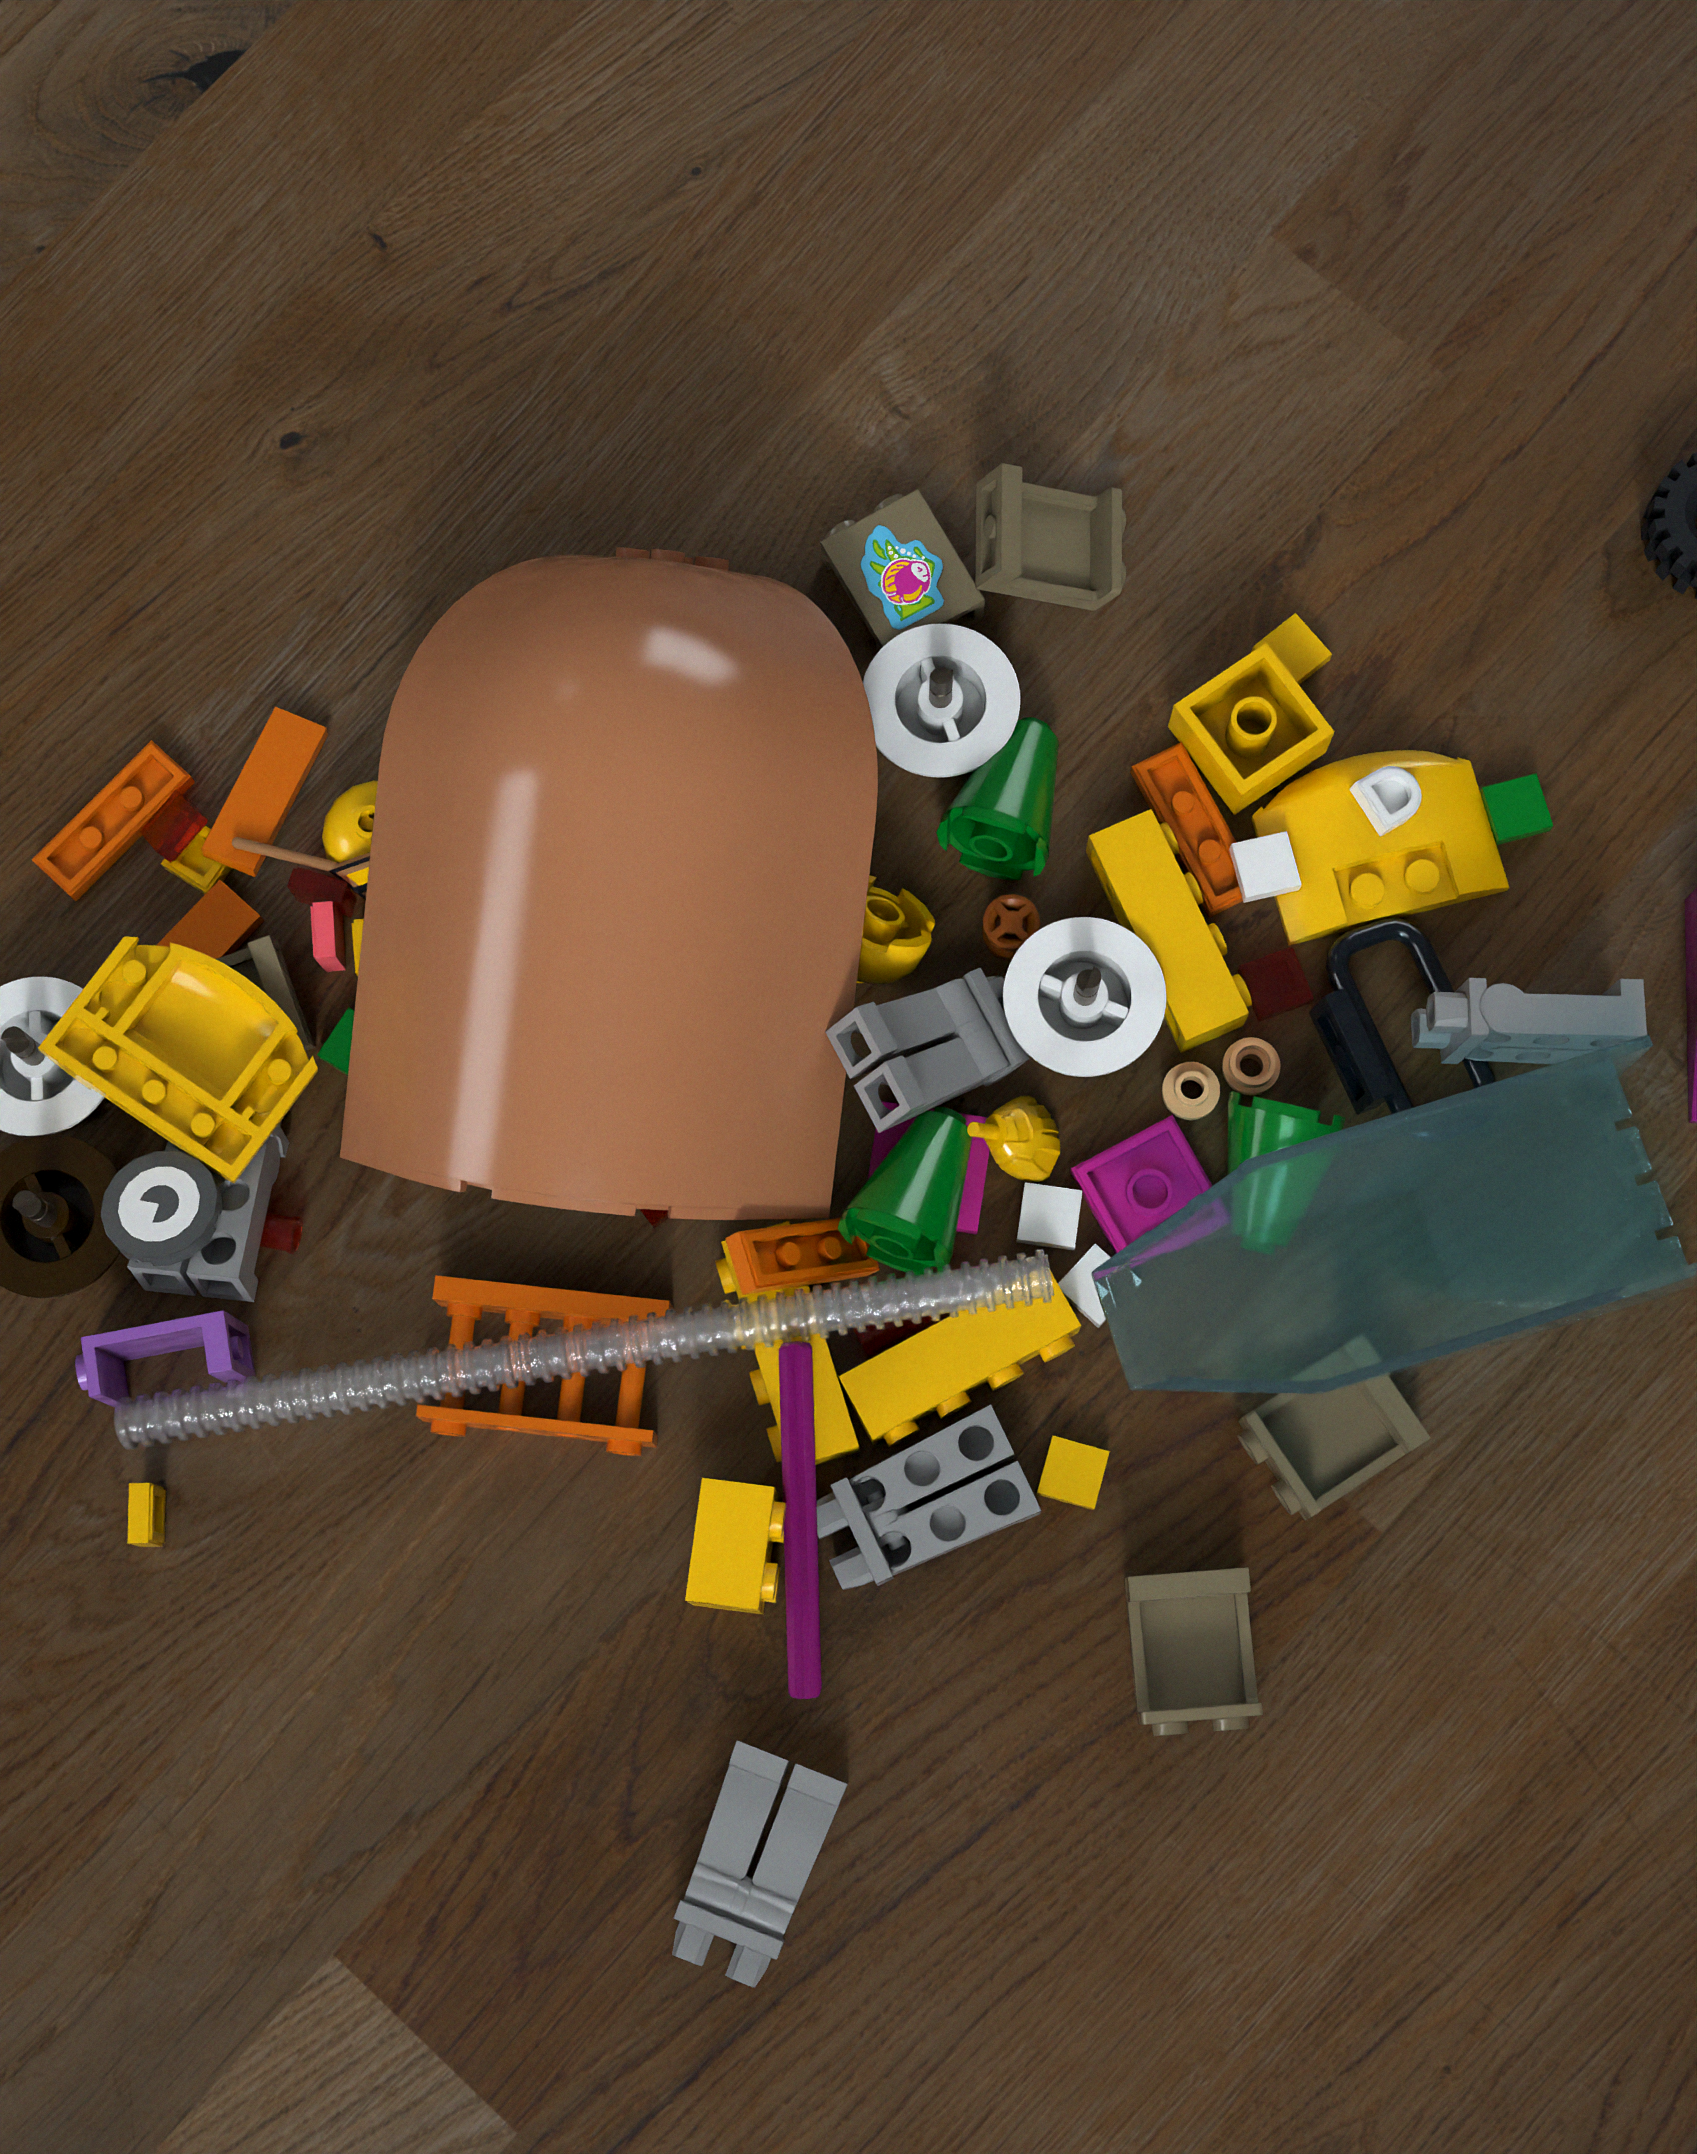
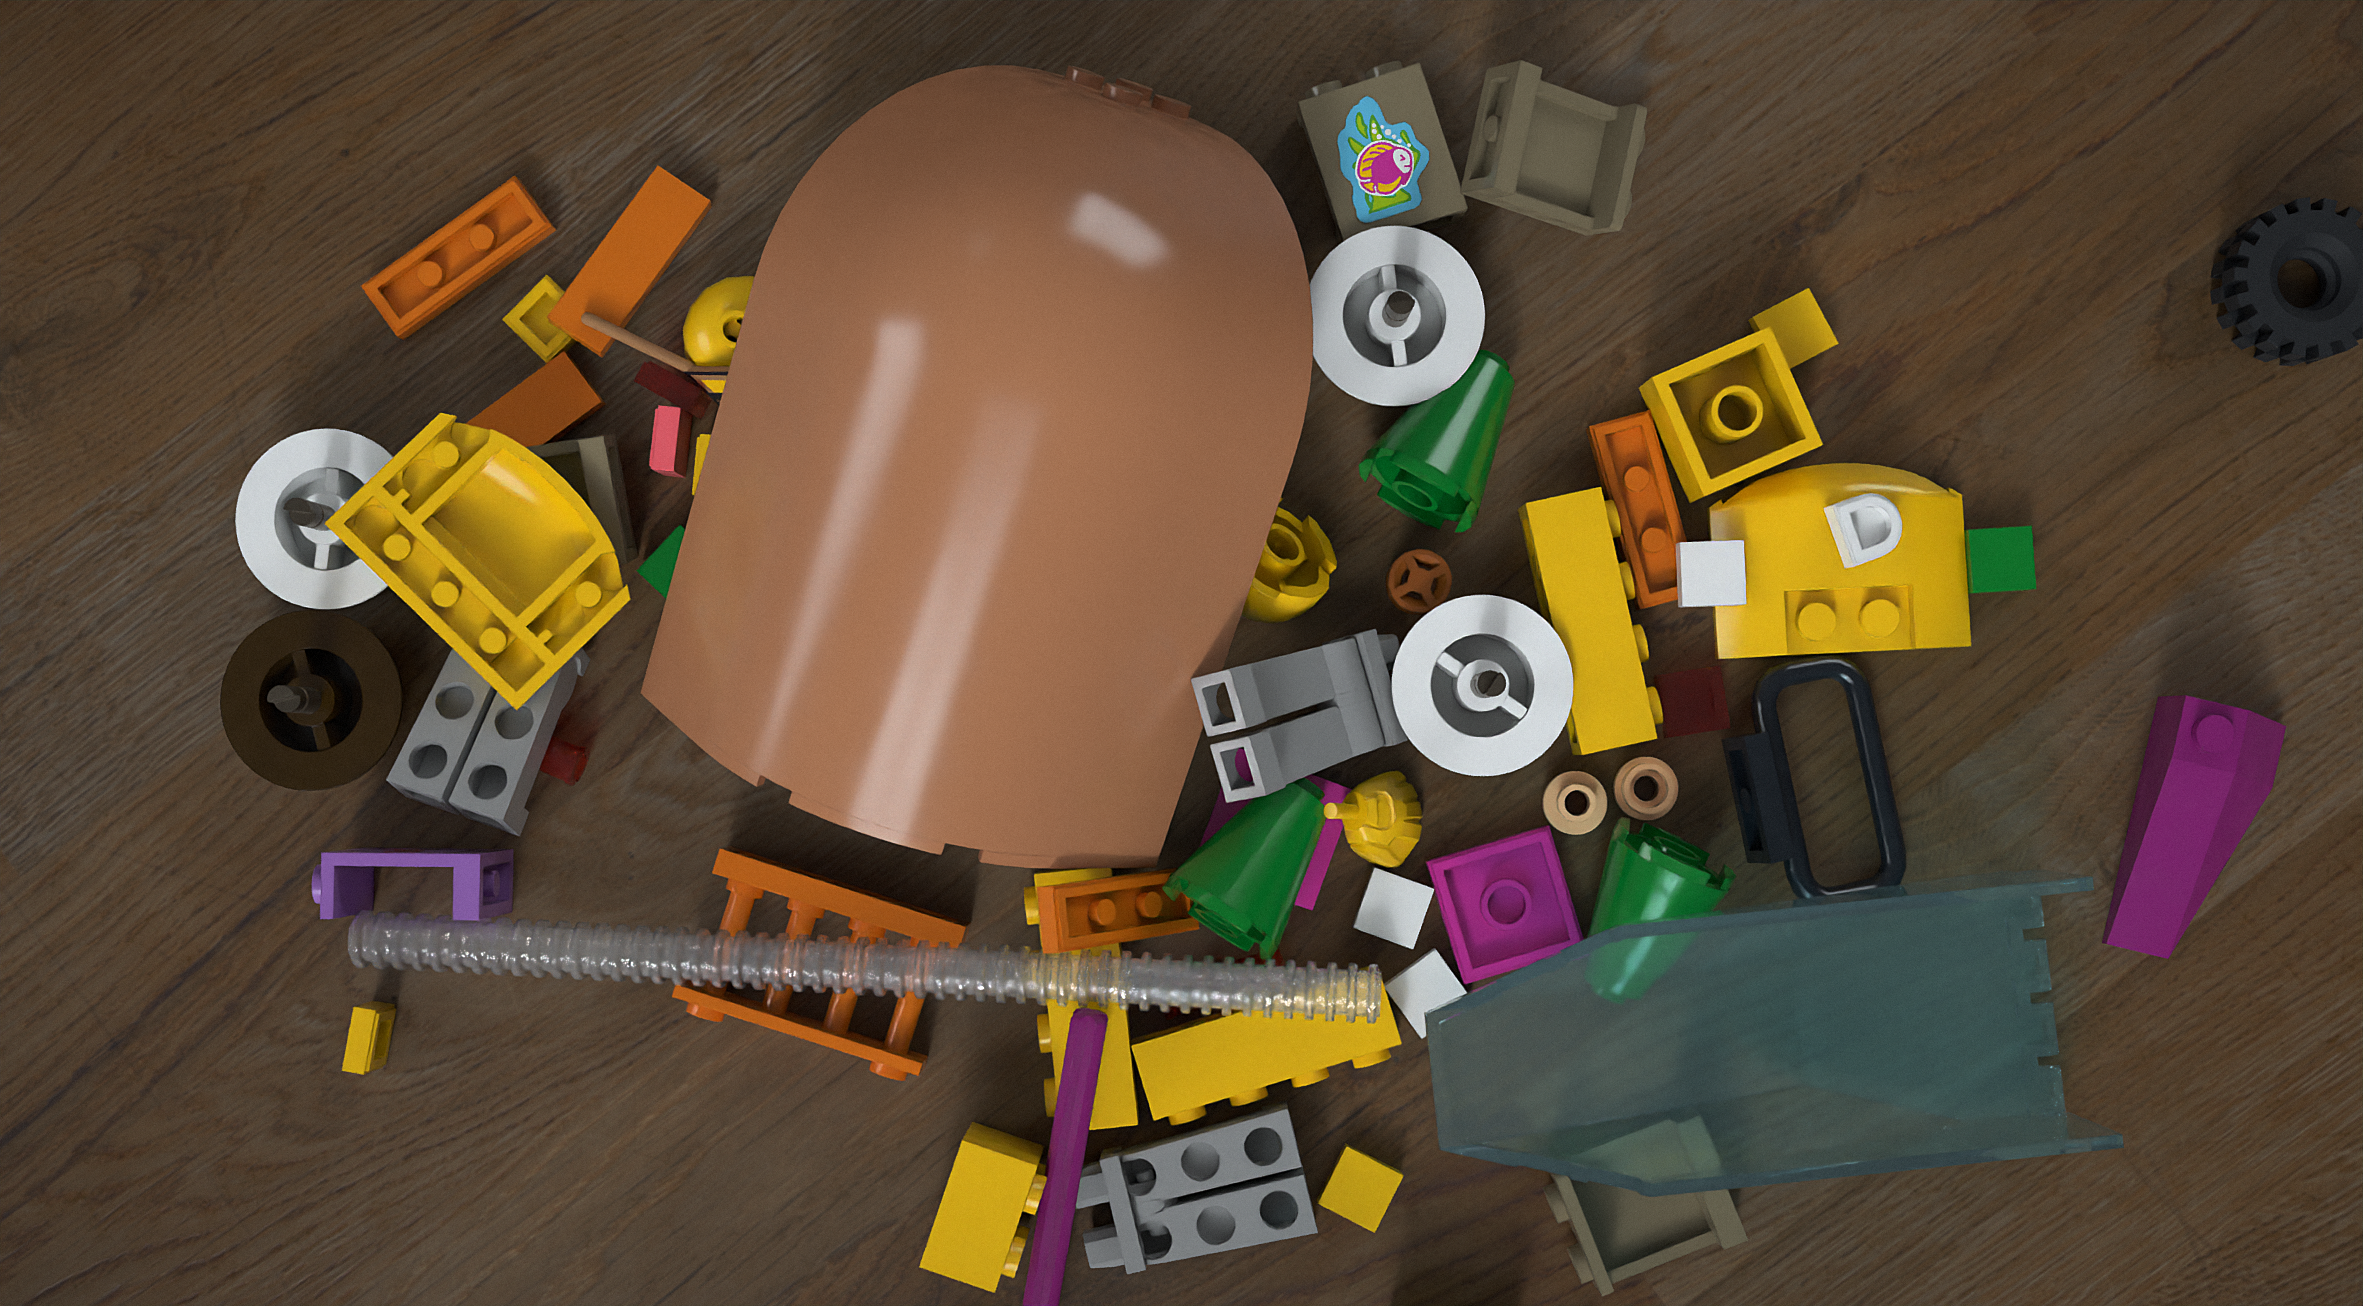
camera: 10 degrees right, 10 degrees up
(161, 1208) = (433, 723): dark grey tile -> none
(174, 826) = (522, 281): clear red tile -> none
(1527, 1028) = (1939, 812): light grey hips -> none

